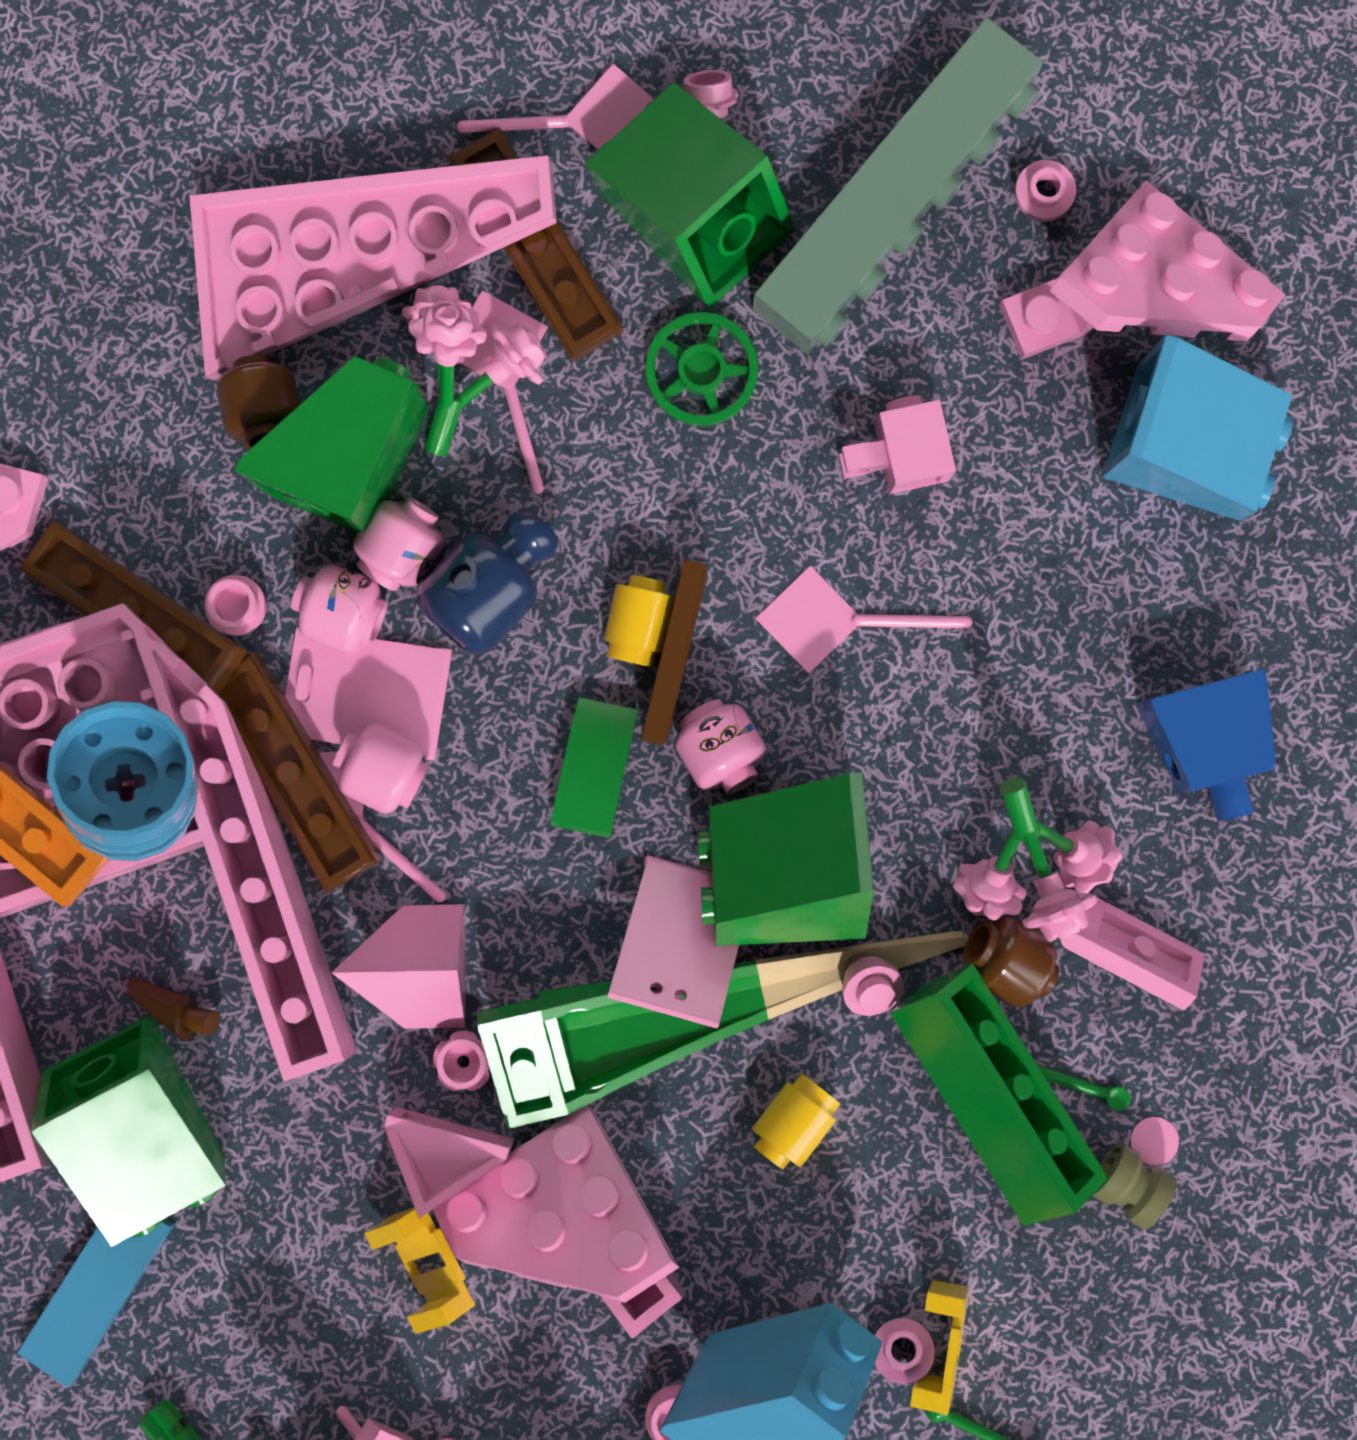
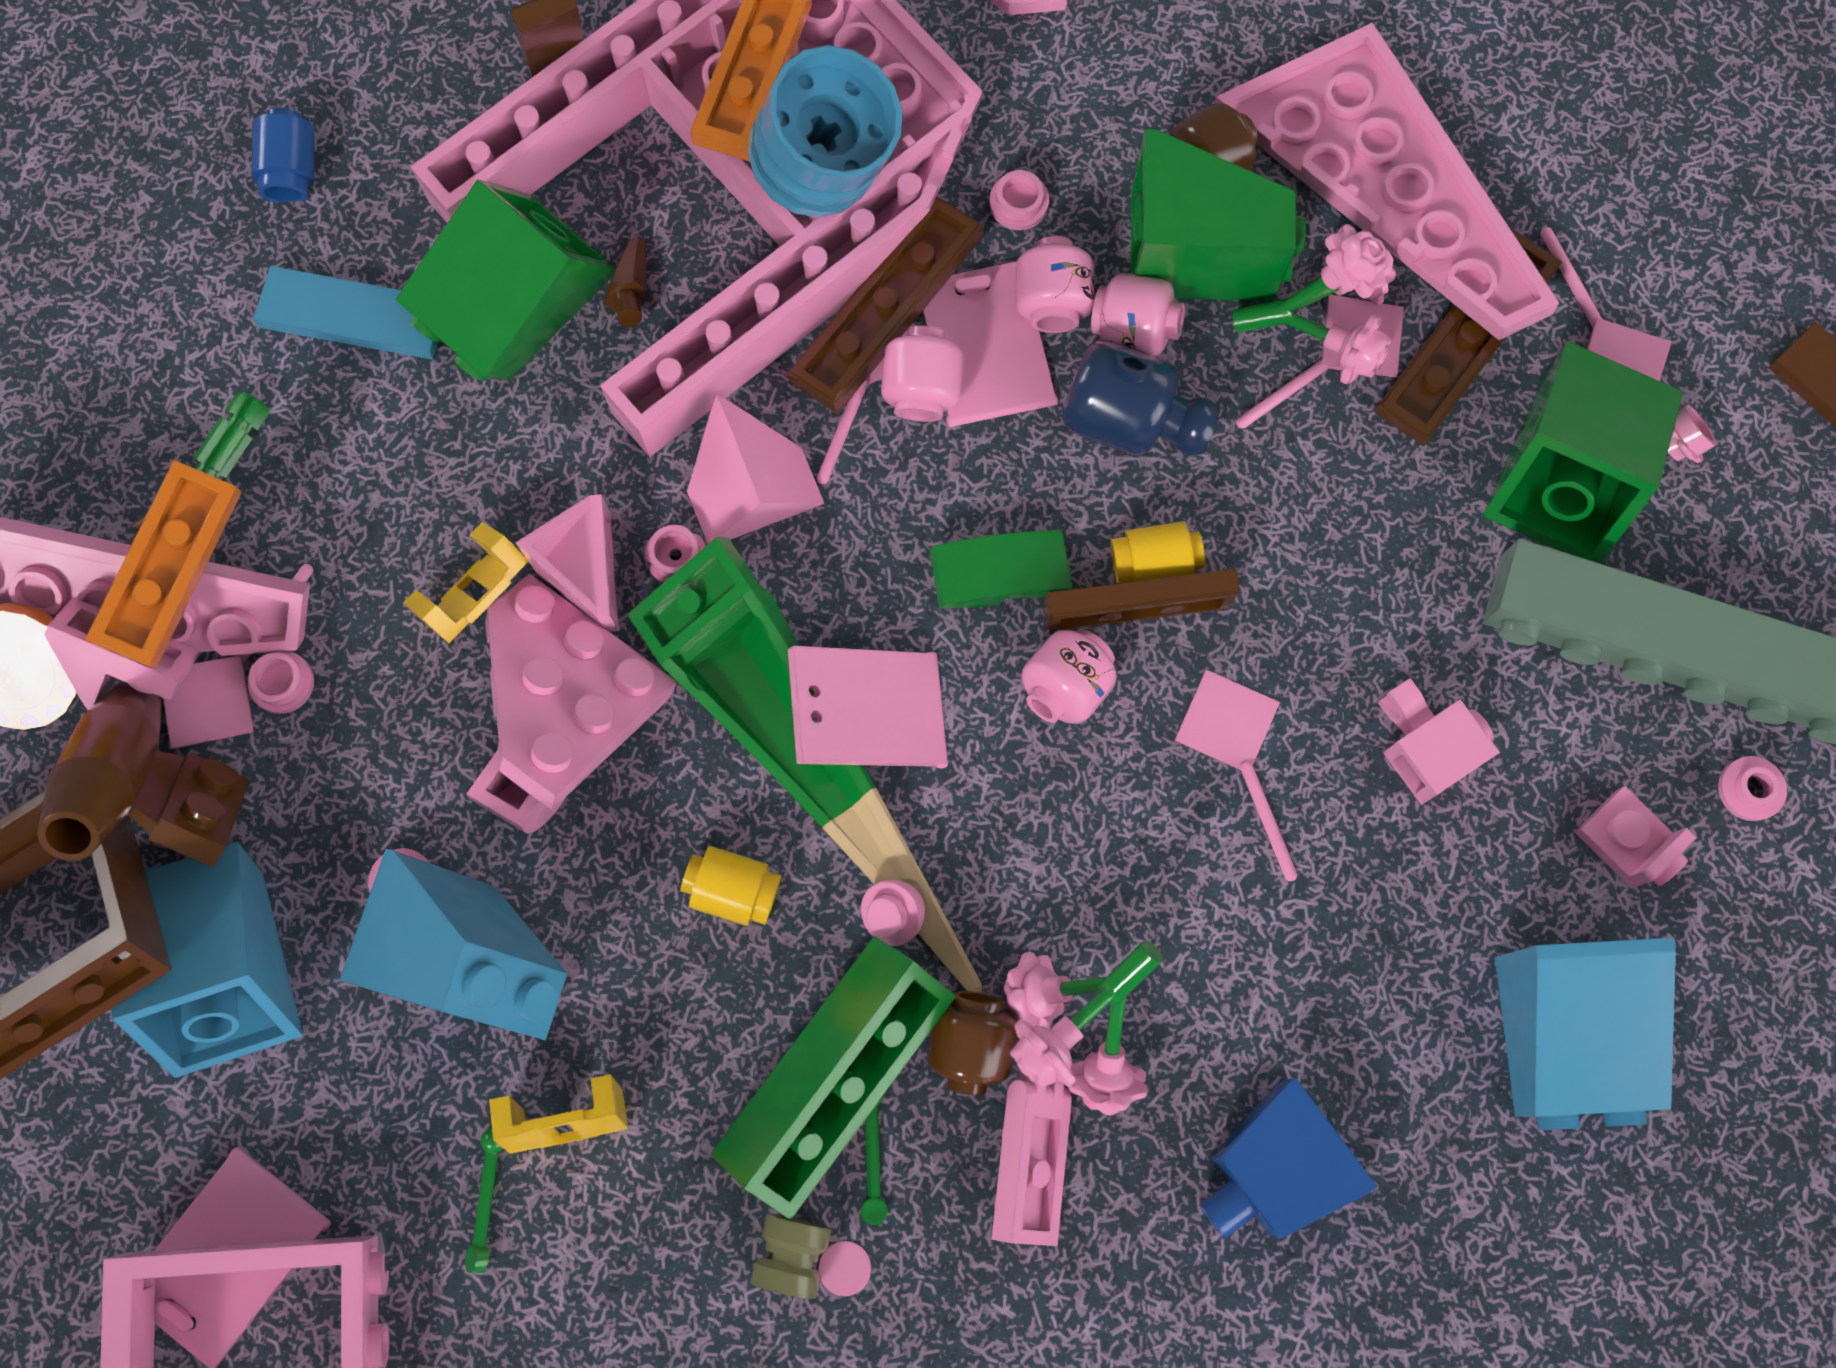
camera: 65 degrees right, 10 degrees down
(97, 582) = (994, 63): reddish brown tile -> none
(701, 369) = (1422, 528): green wheel -> none
(789, 865) = (982, 776): green slope -> none
(924, 1351) = (533, 1099): bright pink plate -> none
(1165, 274) = (1732, 933): bright pink plate -> none

